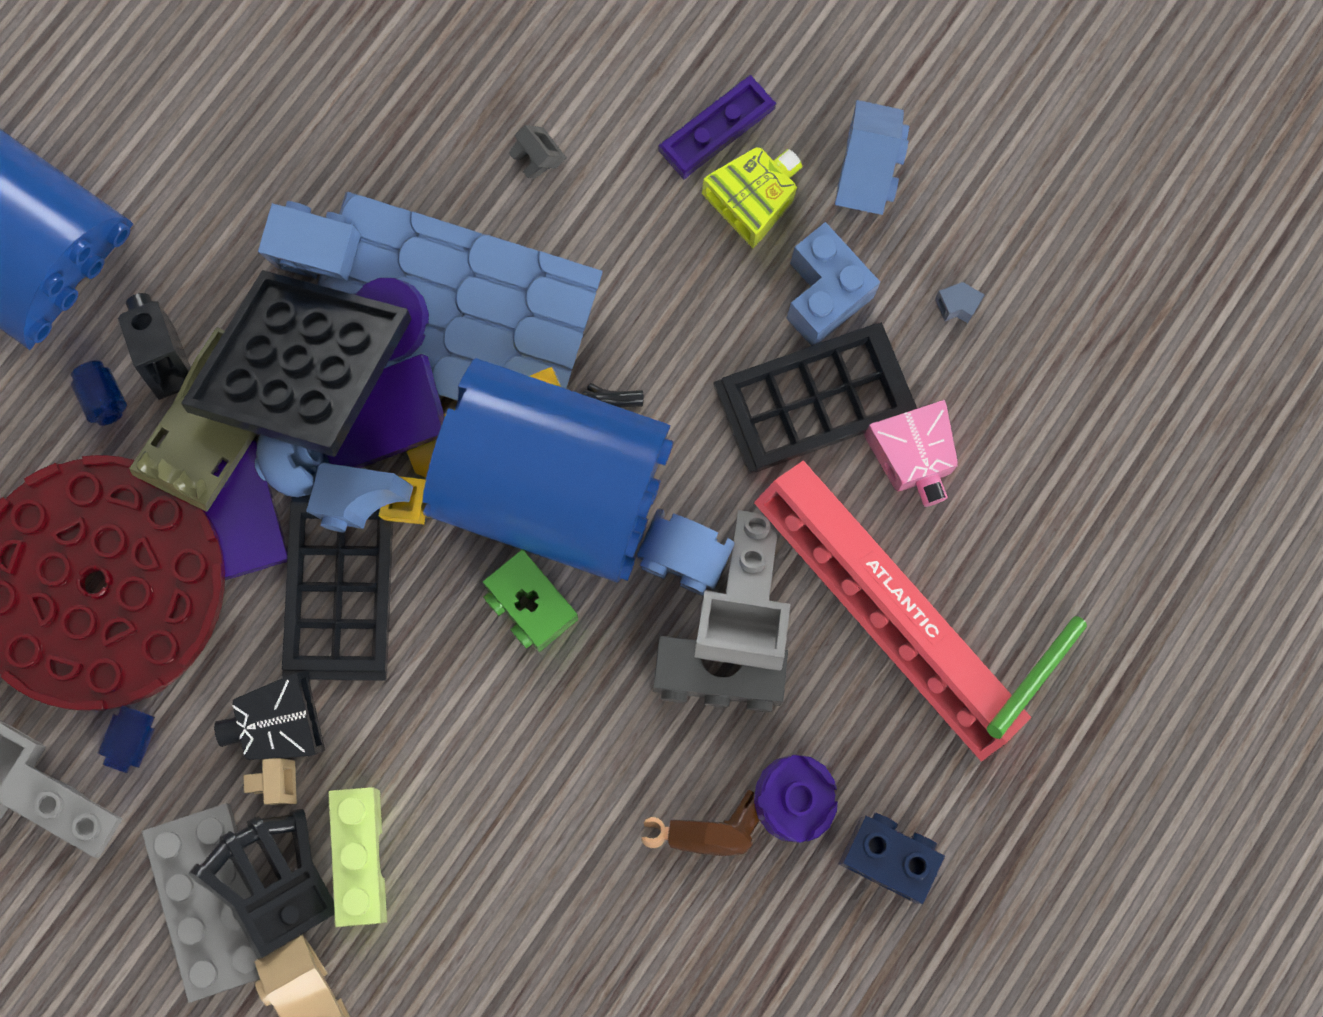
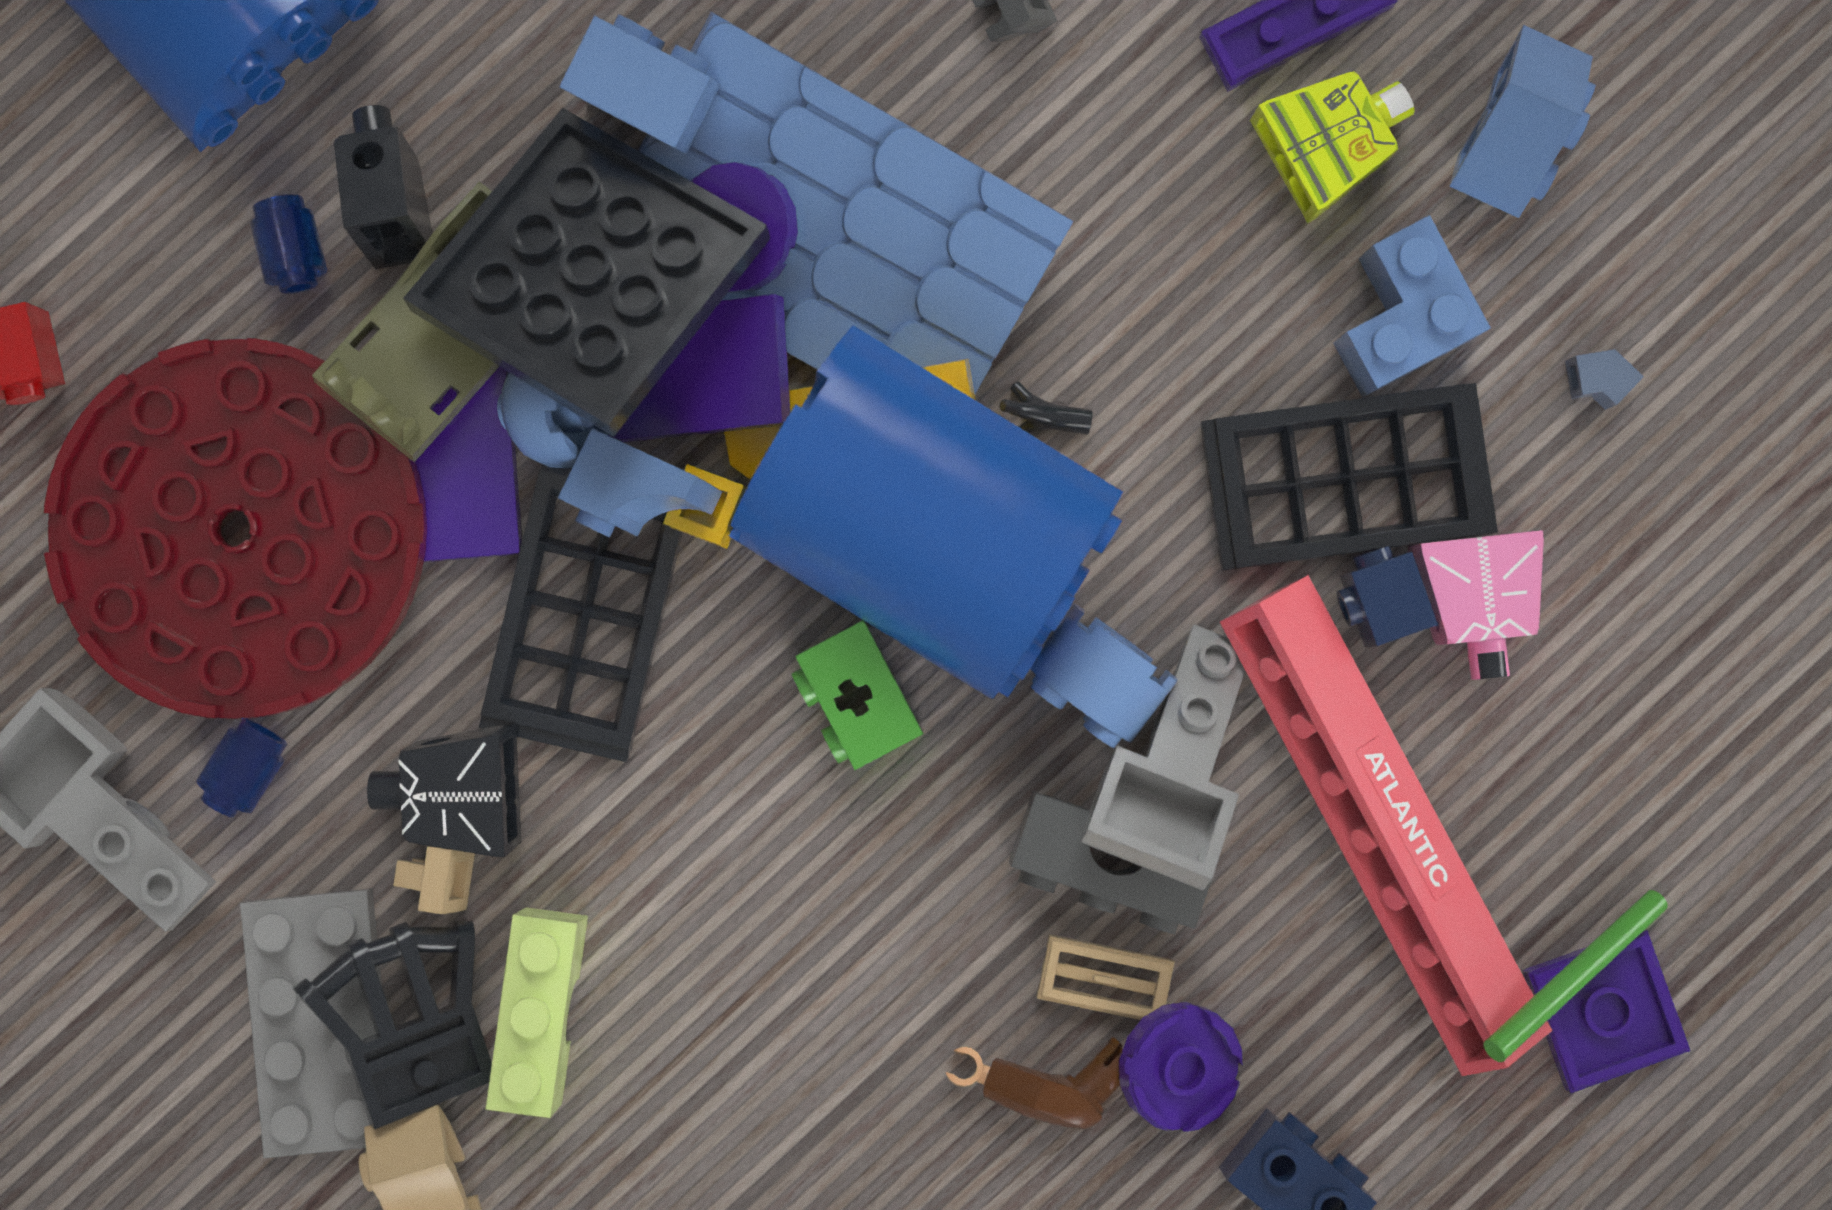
camera: 20 degrees right, 10 degrees up
(697, 754) = (1052, 967): none -> tan tile
(856, 464) = (1385, 597): none -> dark blue brick
(1070, 704) = (1615, 1021): none -> dark purple tile

